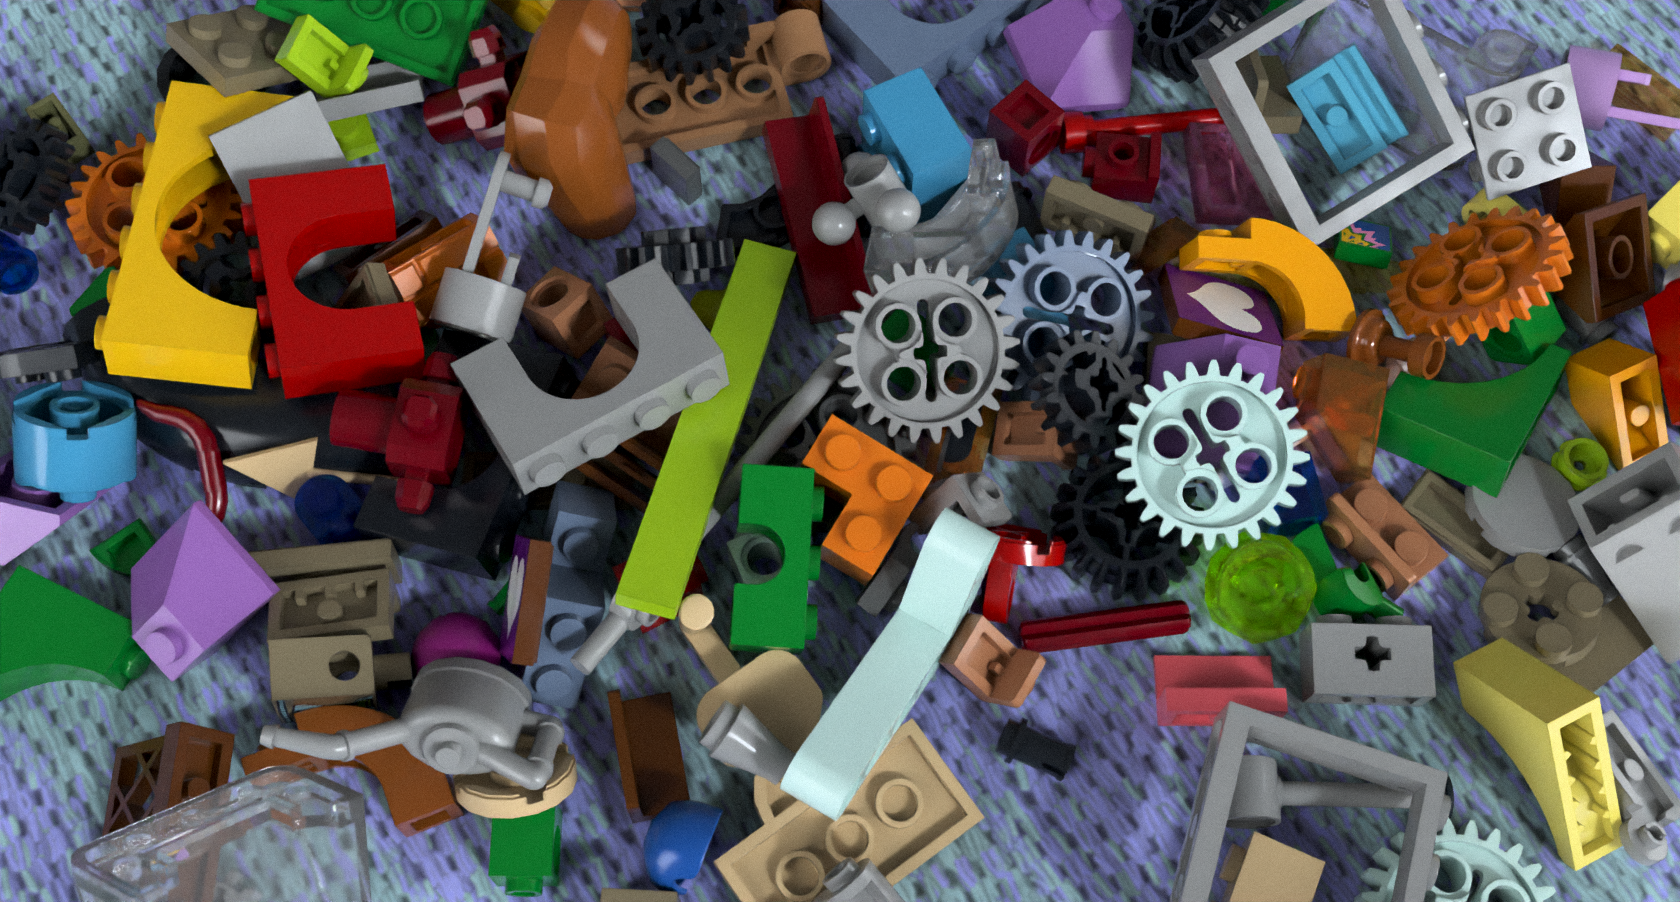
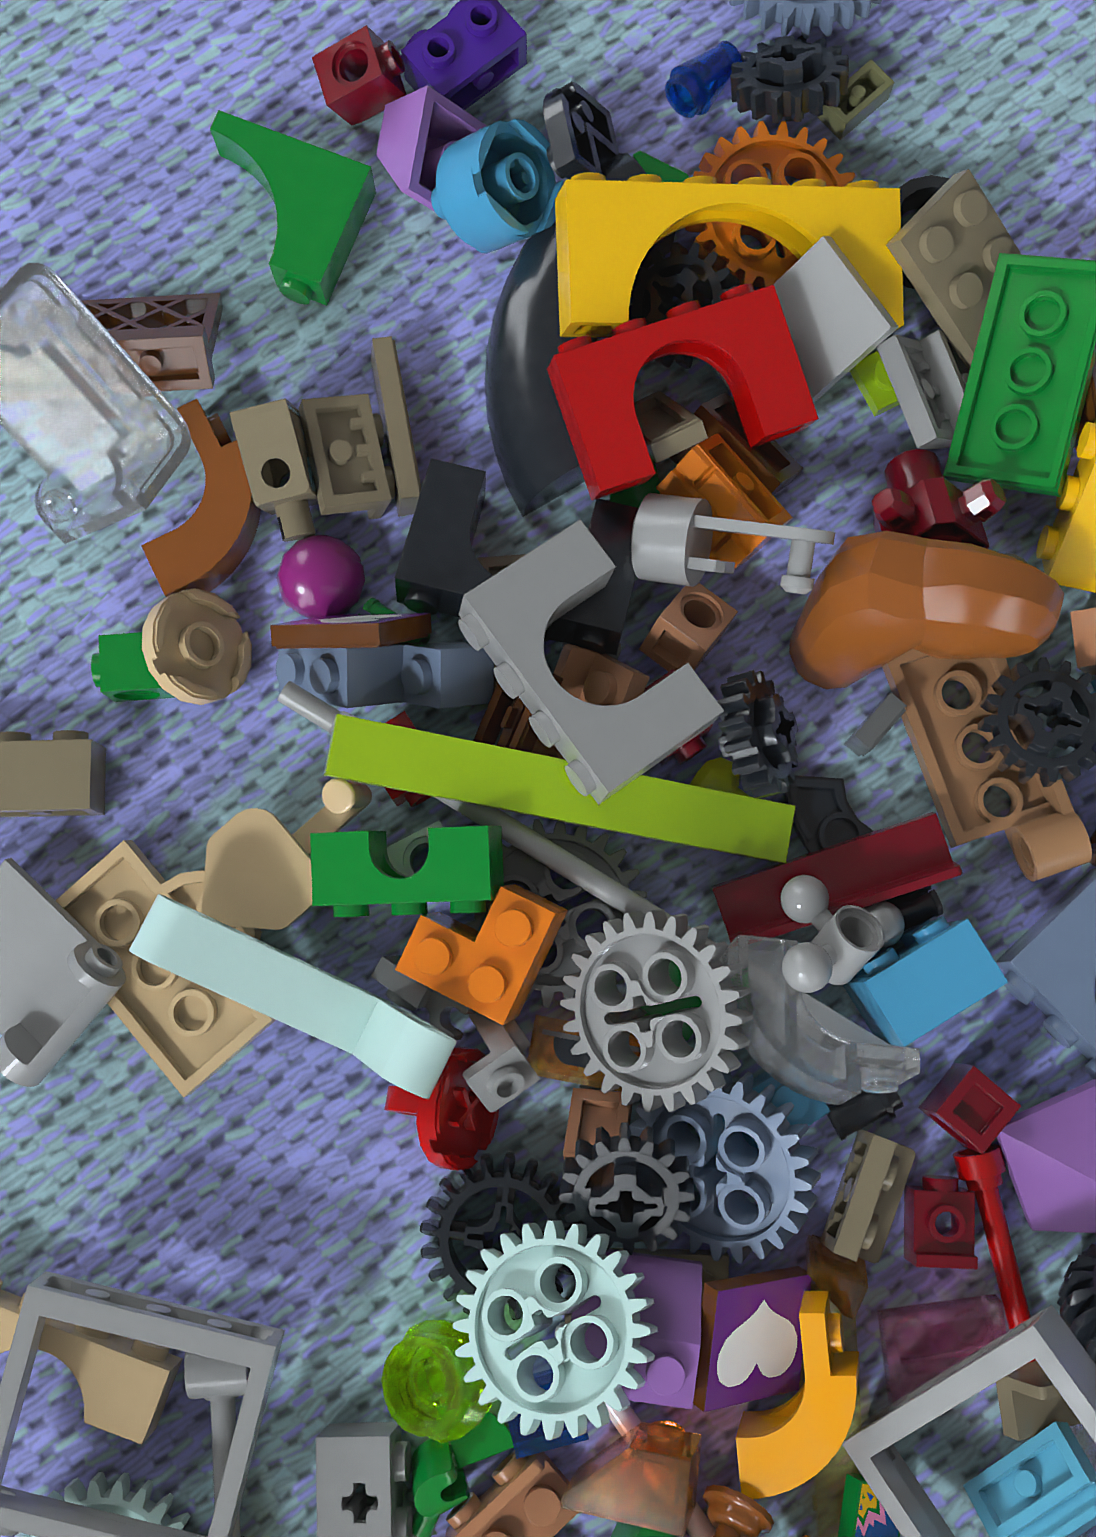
camera: 85 degrees right, 15 degrees up
(125, 547) = (409, 267): green tile -> none
(194, 592) = (346, 325): medium lavender slope -> none
(206, 449) = (490, 313): dark red animal -> none
(290, 466) = (490, 396): tan piece -> none
(323, 59) = (949, 336): lime bracket -> none
(328, 509) = (456, 434): clear blue plate -> none
(416, 430) = (521, 498): dark red piece -> none
(457, 720) = (227, 586): light grey piece -> none
(648, 753) = (232, 767): reddish brown panel -> none
(679, 843) = (141, 807): blue hair -> none
(746, 743) = (217, 856): light grey cone -> none
(991, 663) = (337, 1100): nougat bracket -> none
(1035, 748) = (259, 1145): black pin -> none
(1105, 626) = (393, 1214): dark red axle -> none
(1196, 688) = (330, 1333): coral panel -> none

